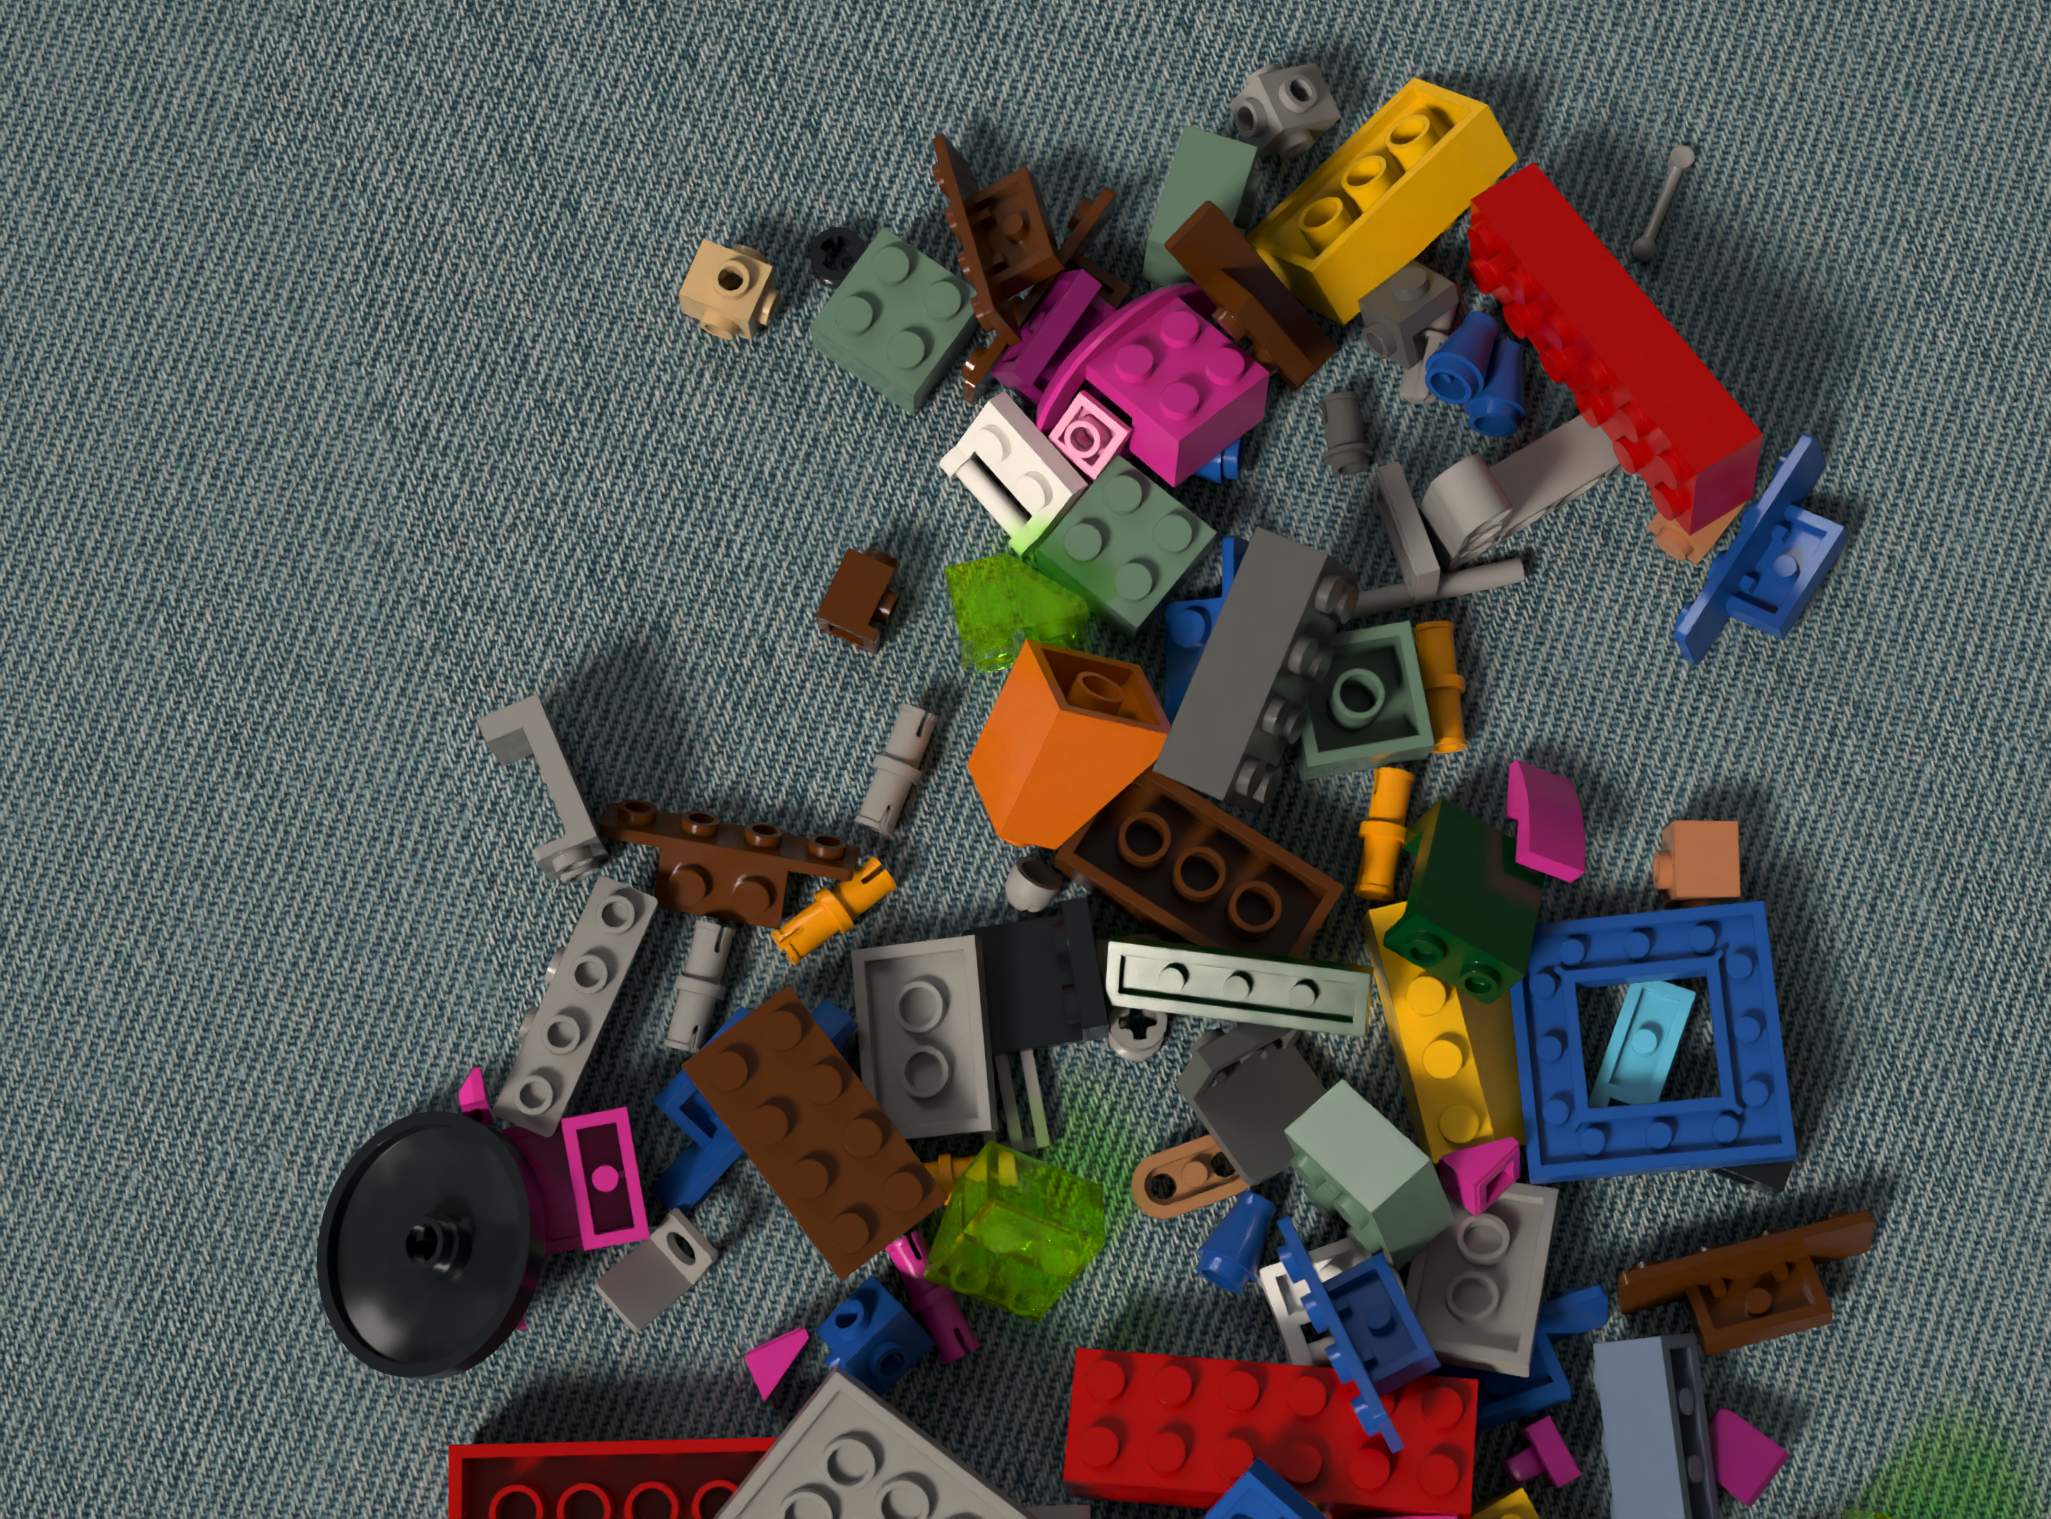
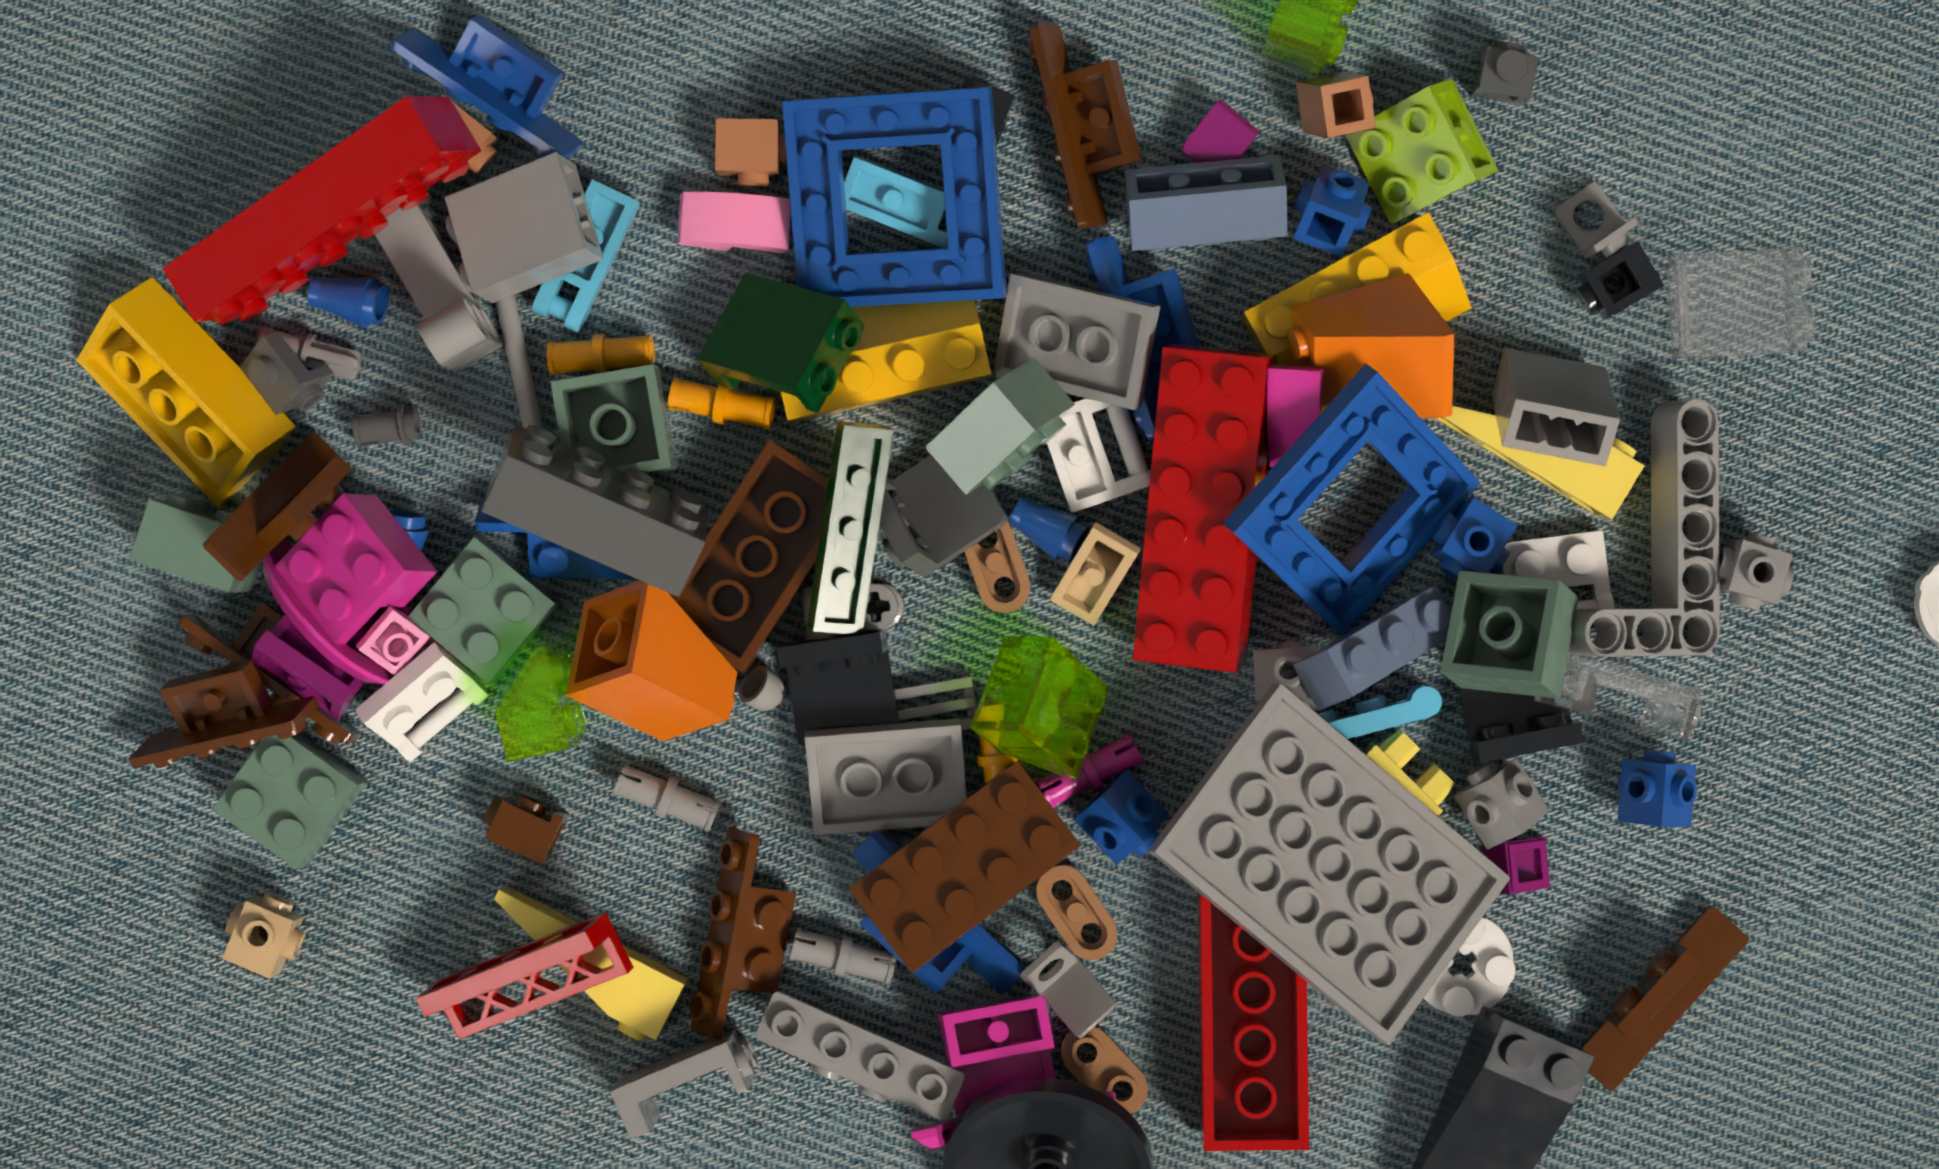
camera: 85 degrees left, 10 degrees up
(556, 1322) = (1106, 1068): none -> medium nougat plate
(675, 708) = (637, 999): none -> light yellow slope
(690, 598) = (526, 965): none -> fence
(754, 1281) = (1075, 911): none -> medium nougat plate
(775, 1359) = (1138, 895): dark pink slope -> none
(833, 911) = (781, 848): light orange pin -> none
(834, 238) = (236, 860): black bush -> none
(1183, 1300) = (1095, 573): none -> tan slope
(1284, 109) = (108, 472): light grey brick -> none
(1372, 1329) = (1122, 431): blue bracket -> none
(1406, 532) = (473, 379): light grey tile -> none
(1462, 361) = (329, 330): blue cone -> none
(1480, 1173) = (998, 336): dark pink slope -> none
(1543, 1454) = (1217, 292): magenta tile -> none
(1548, 821) = (714, 271): dark pink slope -> none
(1561, 668) = (612, 217): none -> medium azure plate
(1593, 590) = (522, 228): none -> light grey brick
(1613, 847) = (734, 220): none -> bright pink slope
(1680, 161) = (150, 138): light grey hinge -> none

